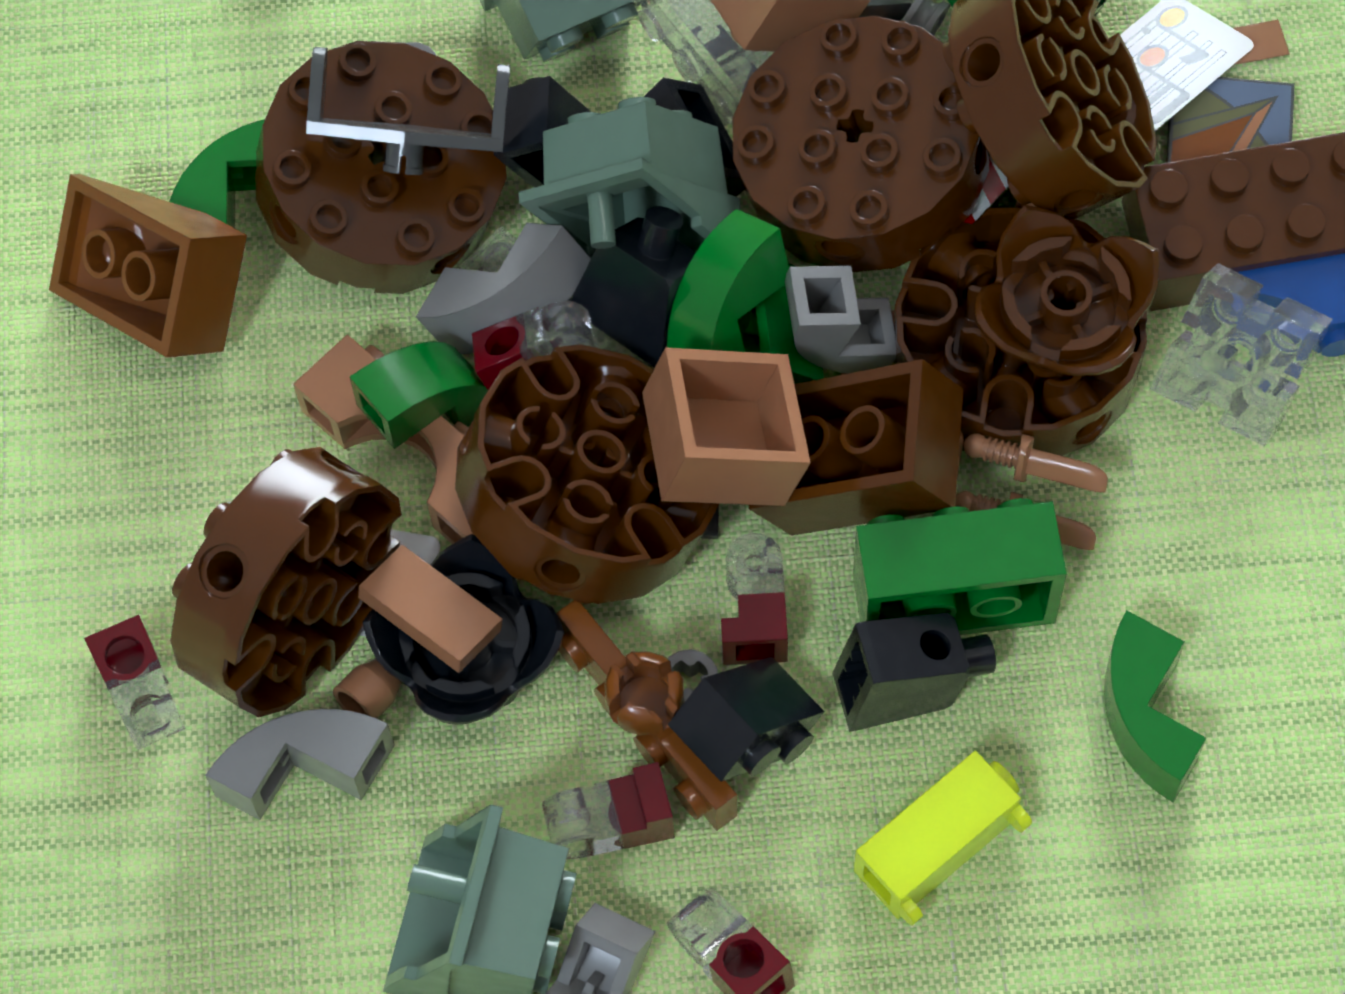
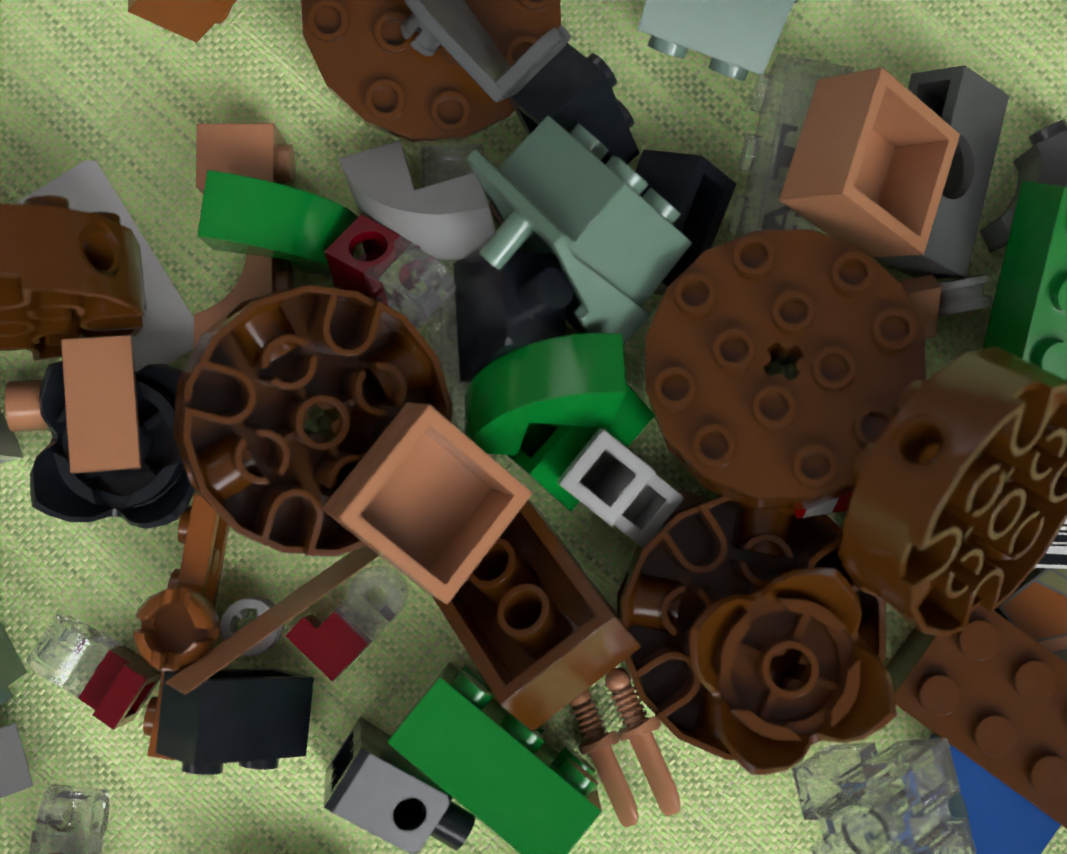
camera: 45 degrees right, 20 degrees up
(704, 619) = (271, 620): none -> nougat sticker

